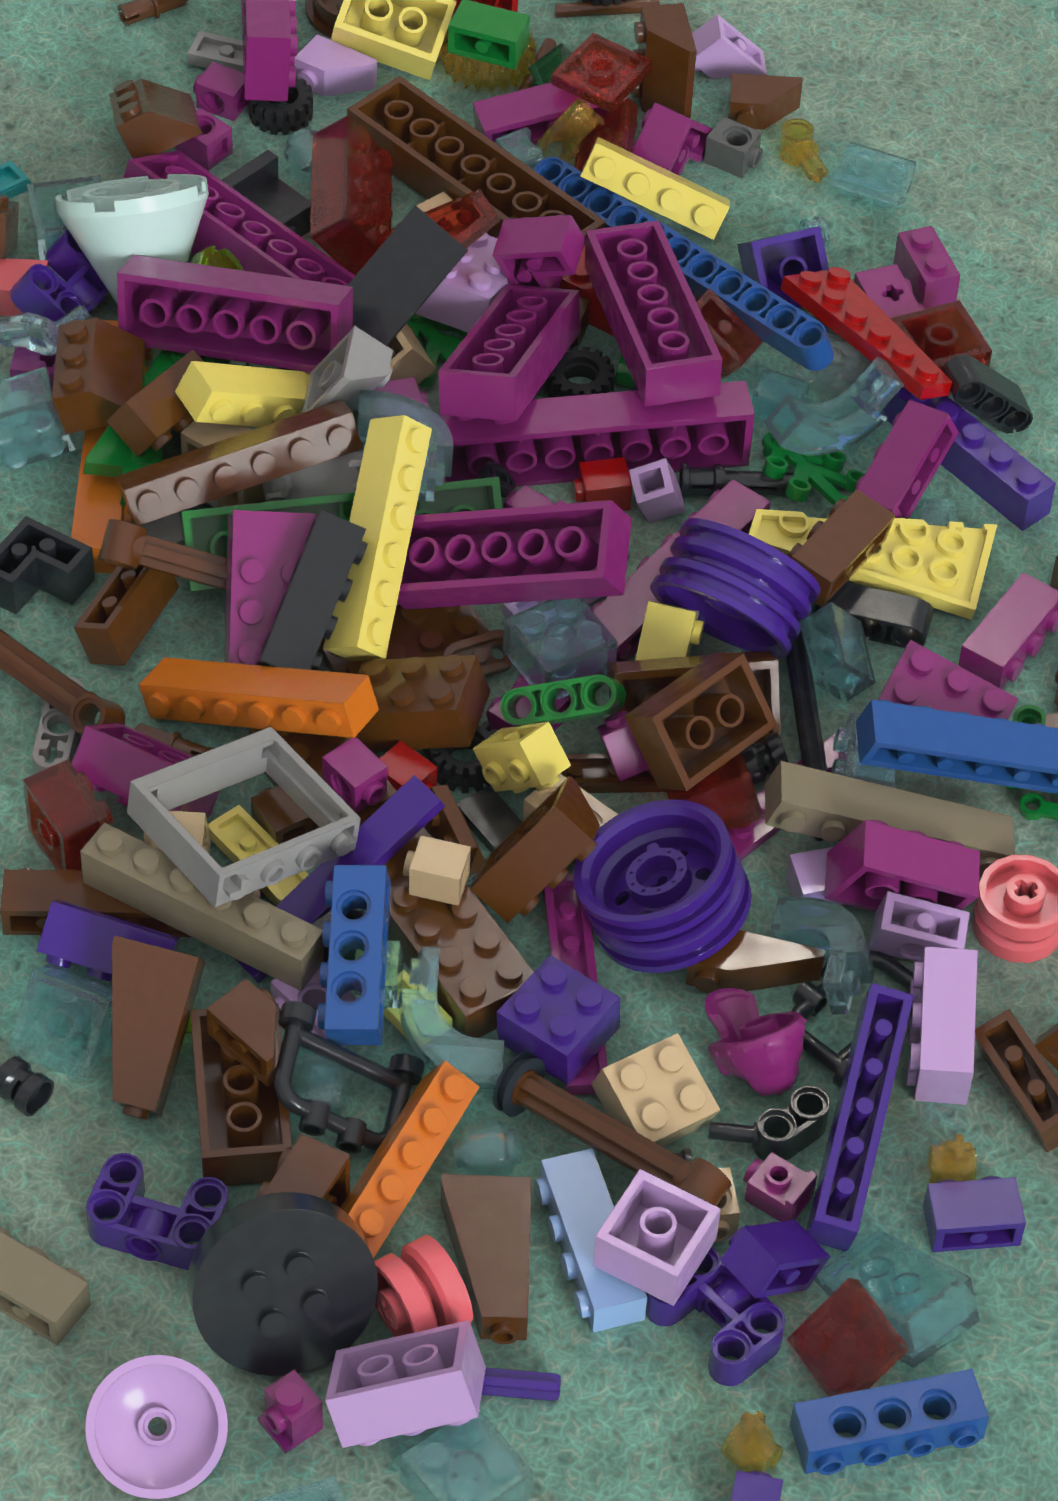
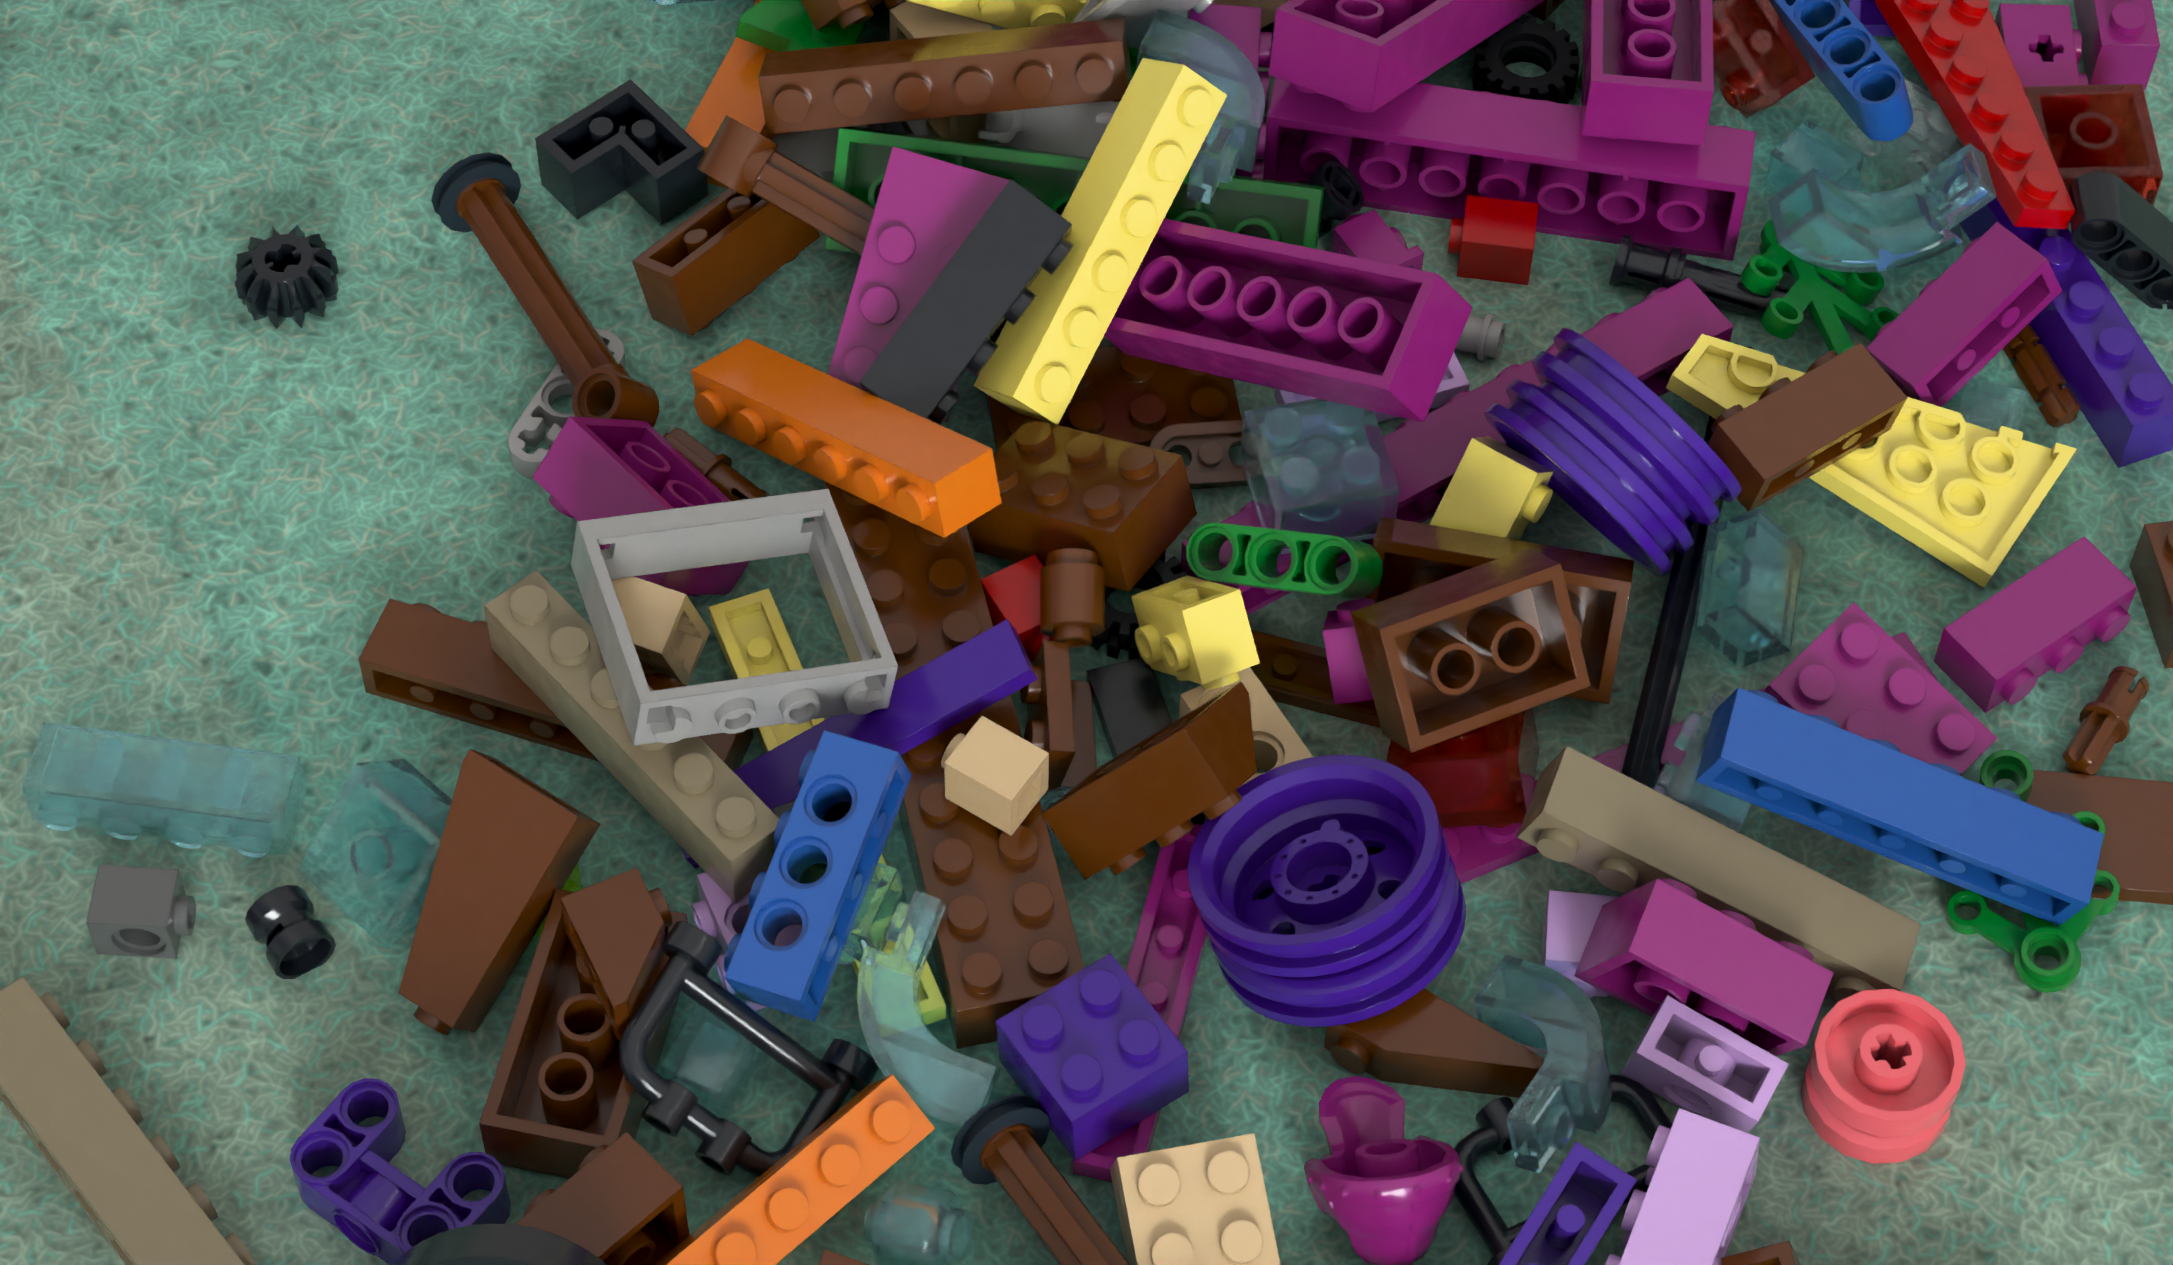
camera: 20 degrees right, 5 degrees up
(63, 813) = (507, 529): clear red brick -> none
(87, 938) = (448, 716): dark purple brick -> none
(279, 815) = (812, 624): reddish brown brick -> none
(355, 774) = (931, 593): magenta brick -> none
(439, 756) = (1072, 596): none -> reddish brown brick
(657, 490) = (1570, 266): lavender brick -> none
(773, 753) = (1576, 723): black wheel -> none
(884, 614) = (1847, 546): black beam -> none
(960, 490) = (2042, 378): none -> reddish brown axle

